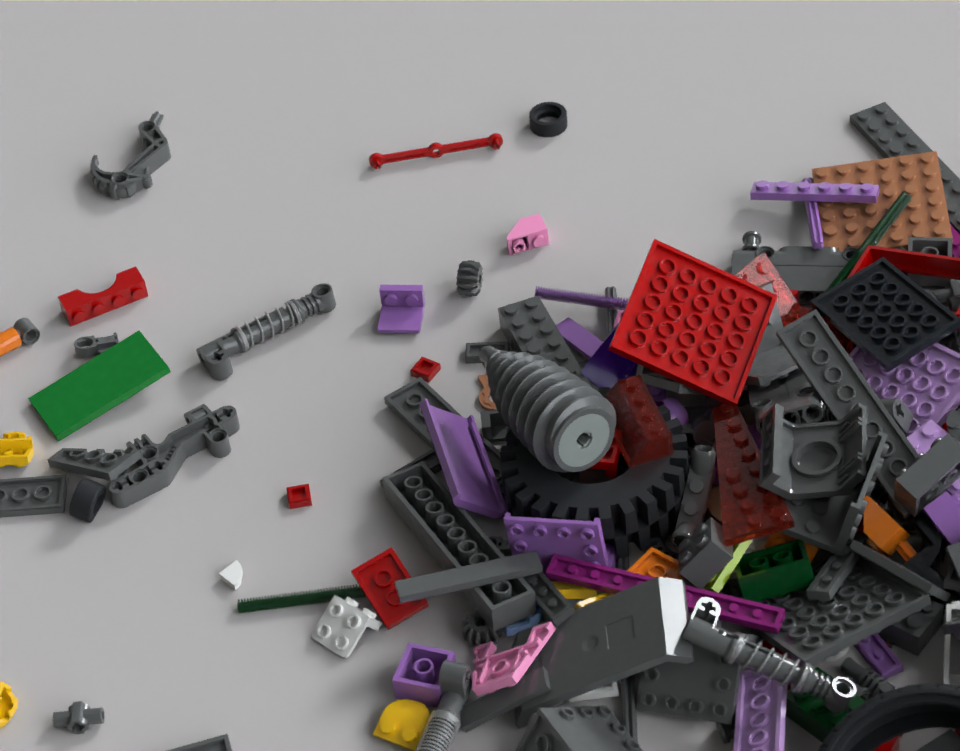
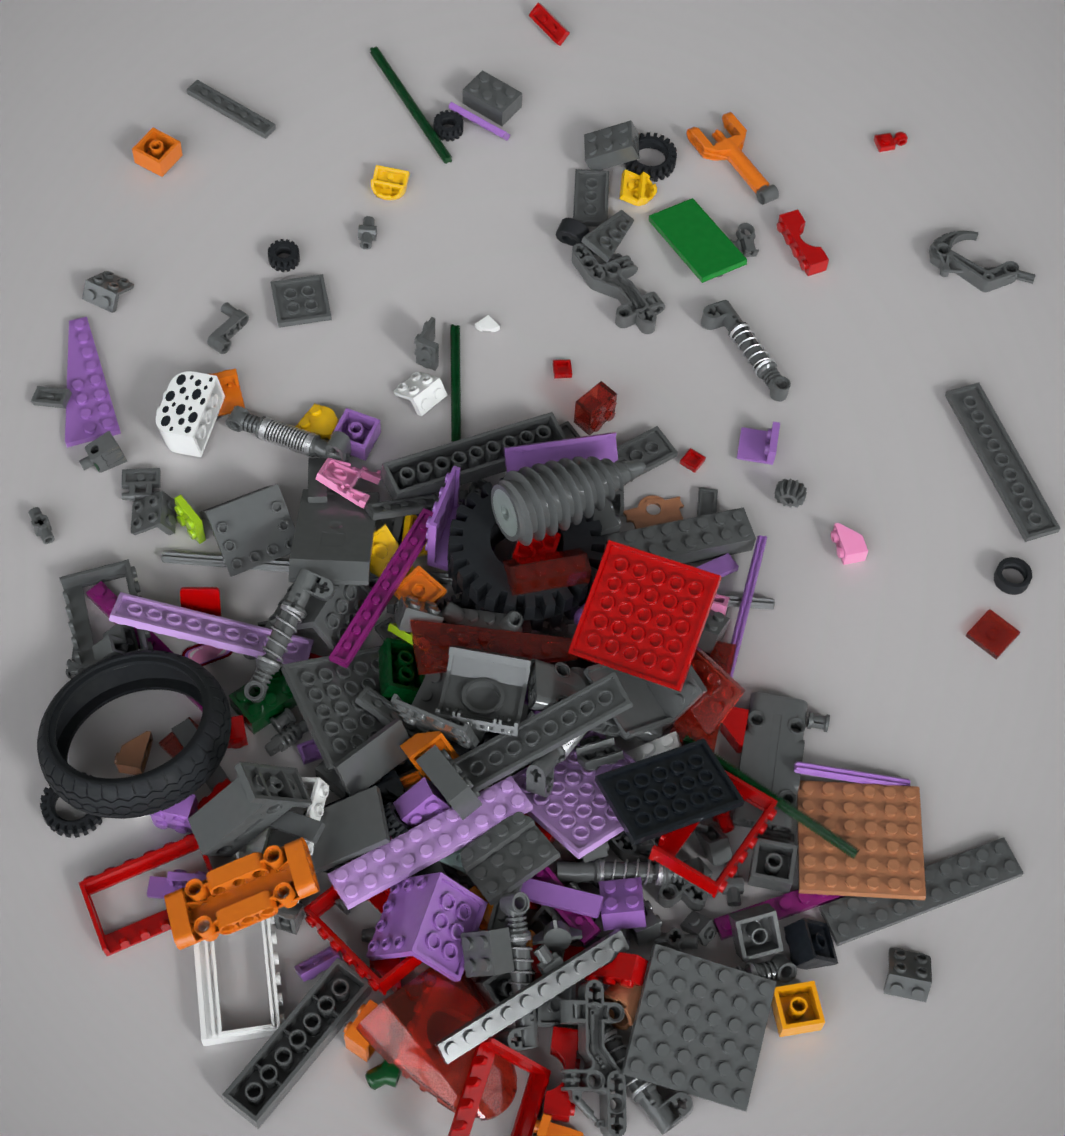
camera: 85 degrees right, 15 degrees up
(278, 622) = (426, 349): none -> dark grey bracket
(368, 446) = (595, 408): none -> clear red brick
(377, 160) = (974, 484): red piece -> none
(378, 584) = (445, 416): red plate -> none
(403, 132) = (1002, 462): none -> dark grey plate
(468, 576) = (418, 451): dark grey tile -> none
(618, 133) = (993, 634): none -> clear red tile
(815, 192) = (876, 779): medium lavender plate -> none

